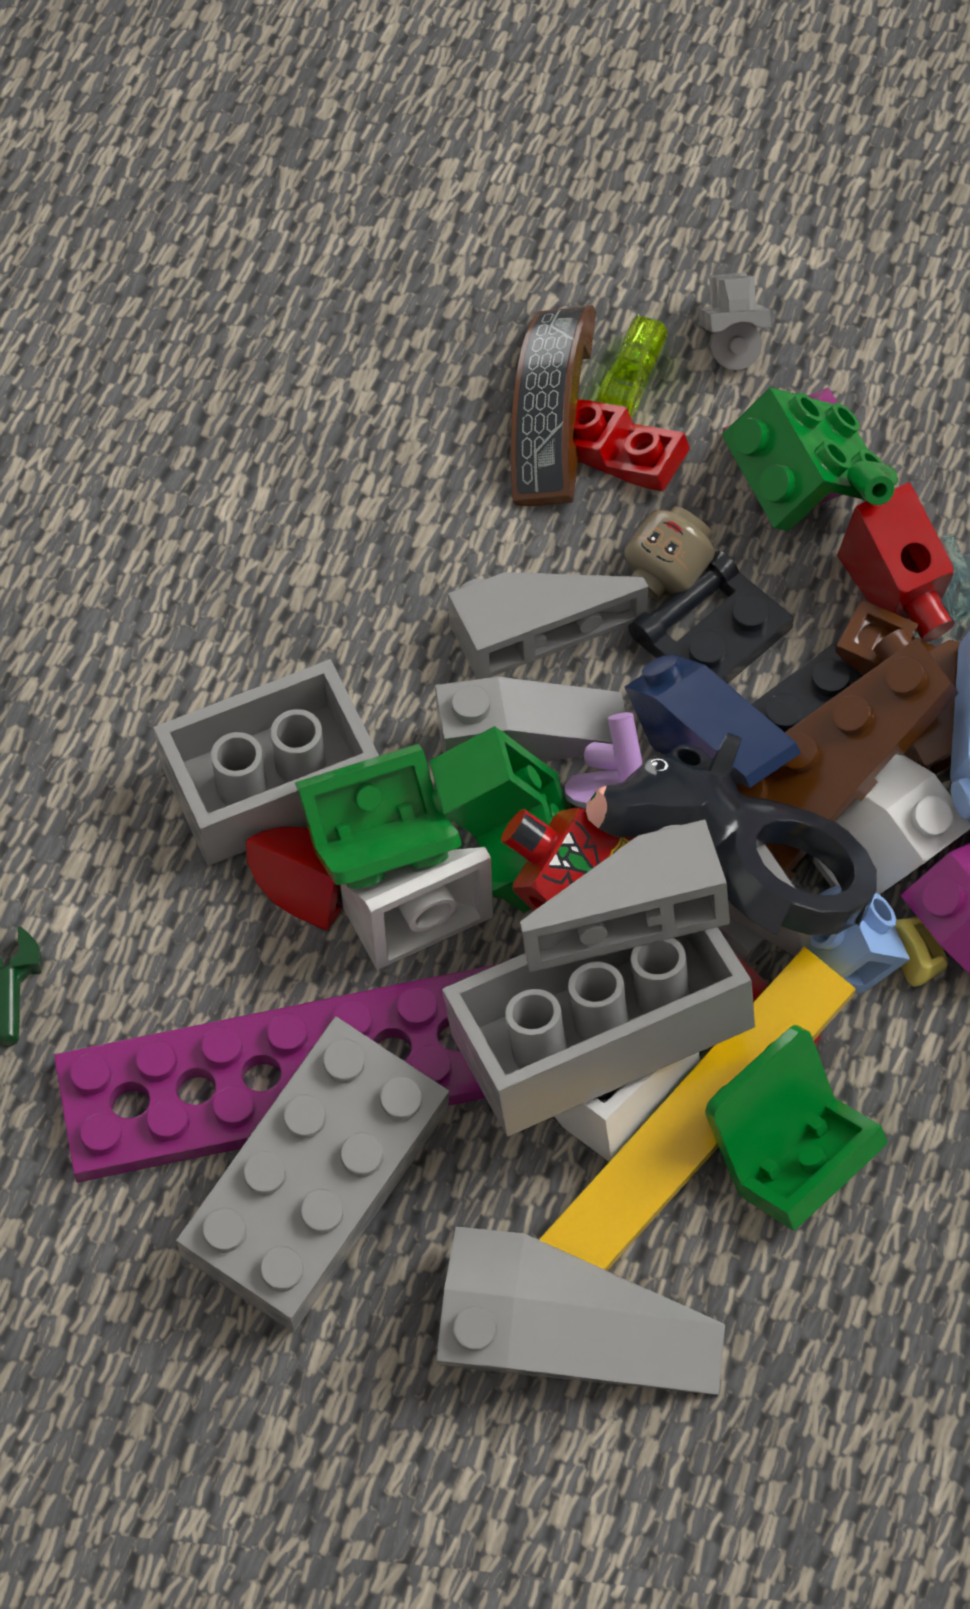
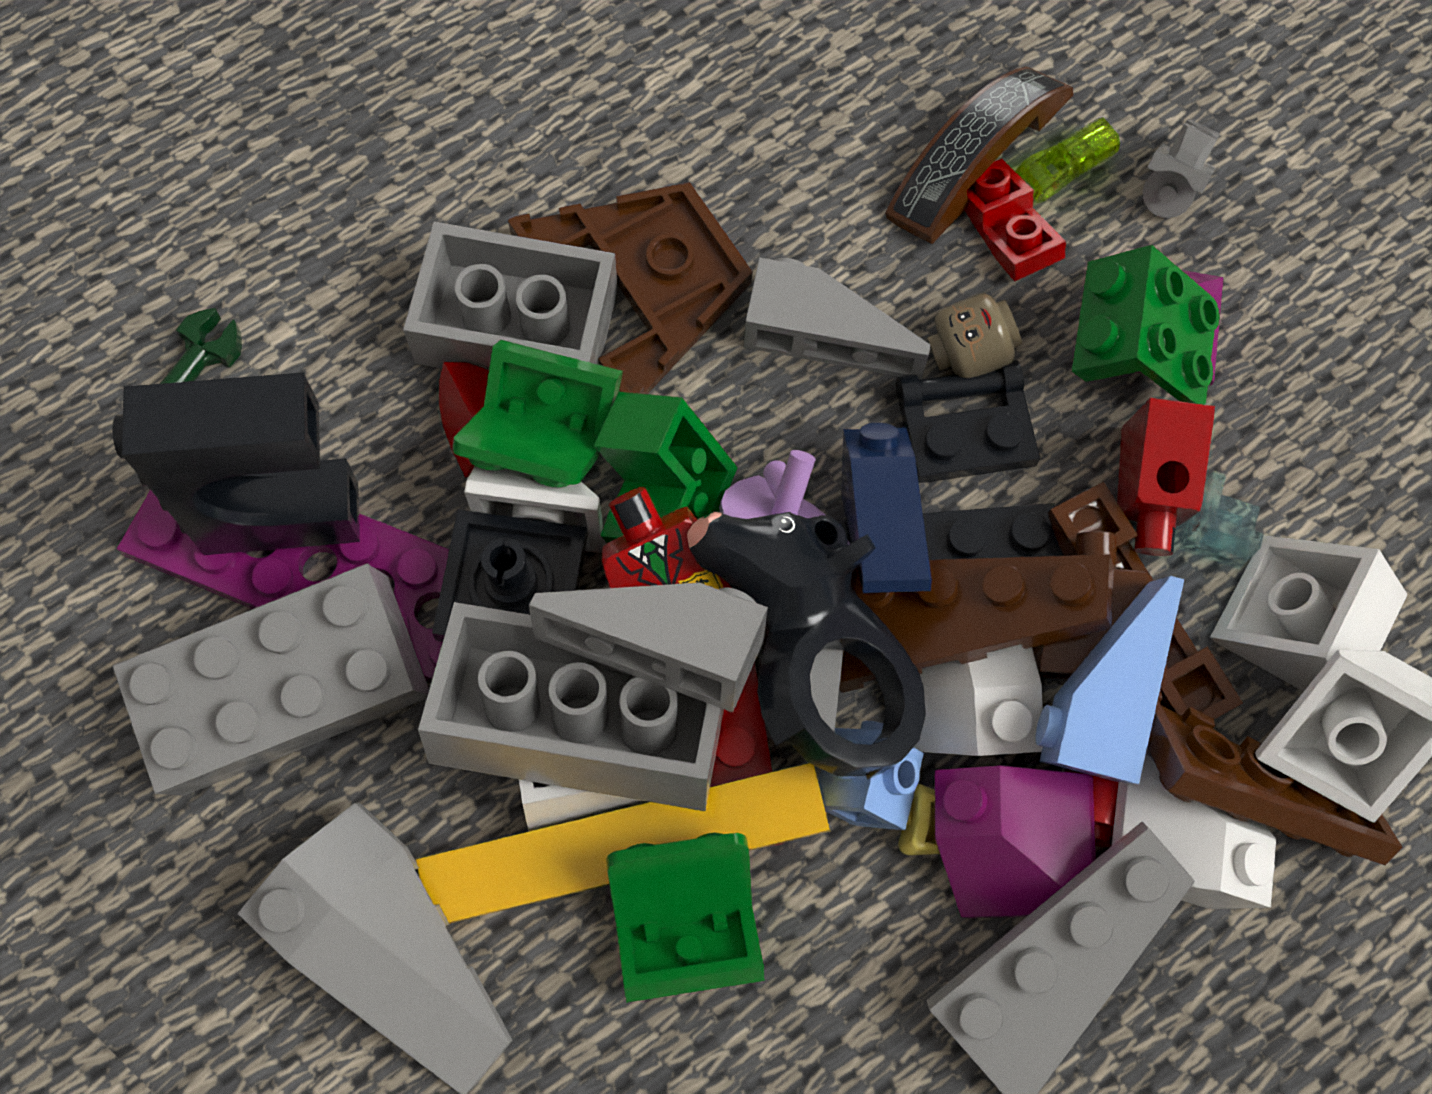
camera: 30 degrees right, 10 degrees up
(184, 996) = (239, 462): none -> black arch
(378, 643) = (669, 265): none -> reddish brown wing
(431, 954) = (506, 561): none -> black plate
(540, 716) = (748, 404): light grey slope -> none
(873, 481) = (1183, 386): green arm -> none

